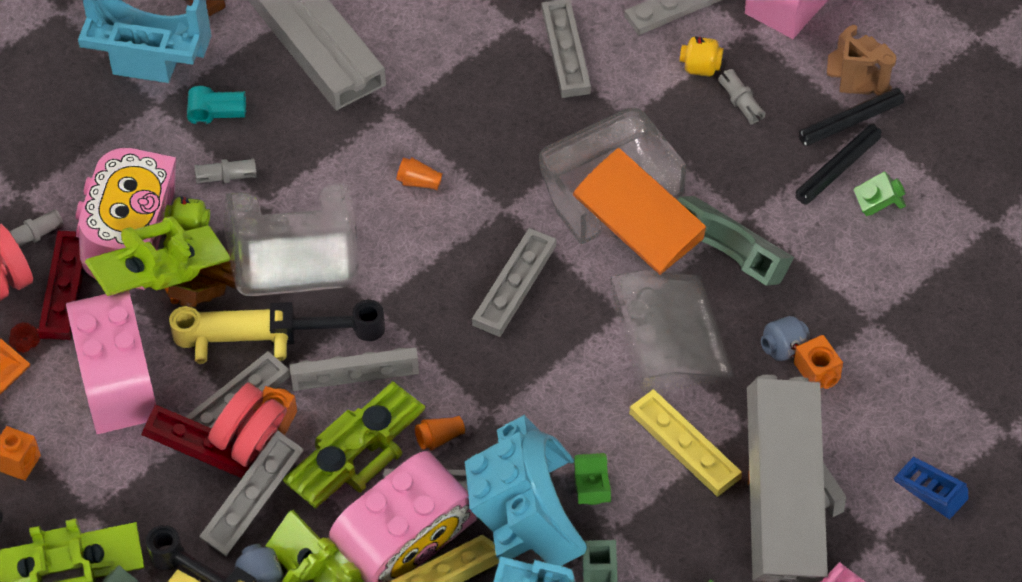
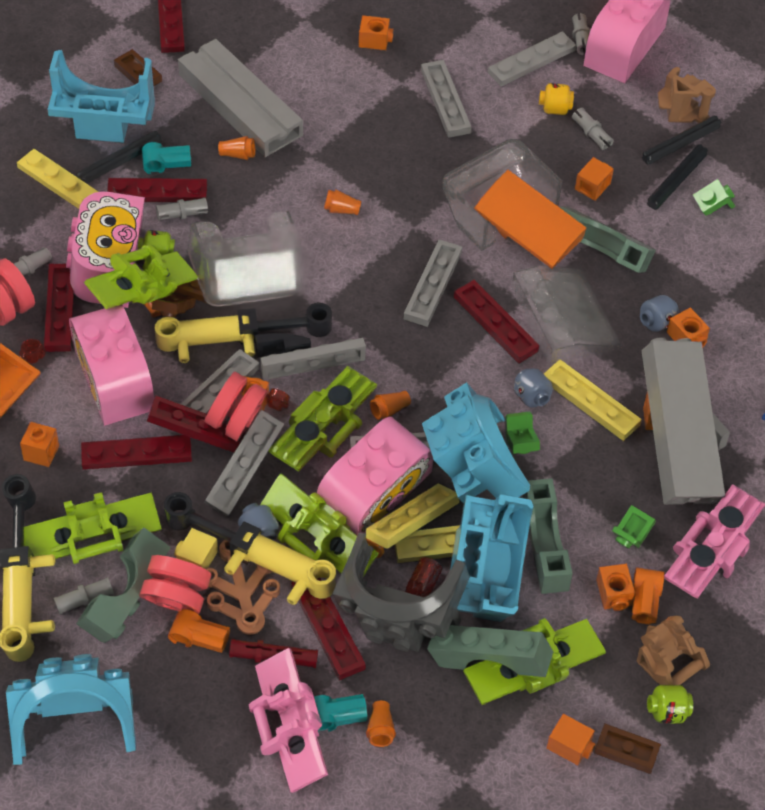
camera: 10 degrees left, 0 degrees up
(81, 122) = (55, 177): none -> light yellow plate
(128, 469) = (136, 452): none -> dark red plate
(157, 102) = (117, 158): none -> black axle
(201, 144) = (160, 188): none -> dark red plate
(304, 97) = (238, 148): none -> orange cone
(305, 416) = (277, 399): none -> clear red plate
(317, 347) = (279, 343): none -> black slope
(584, 336) = (496, 321): none -> dark red plate
(615, 422) = (533, 387): none -> sand blue head
(732, 161) = (594, 178): none -> orange brick

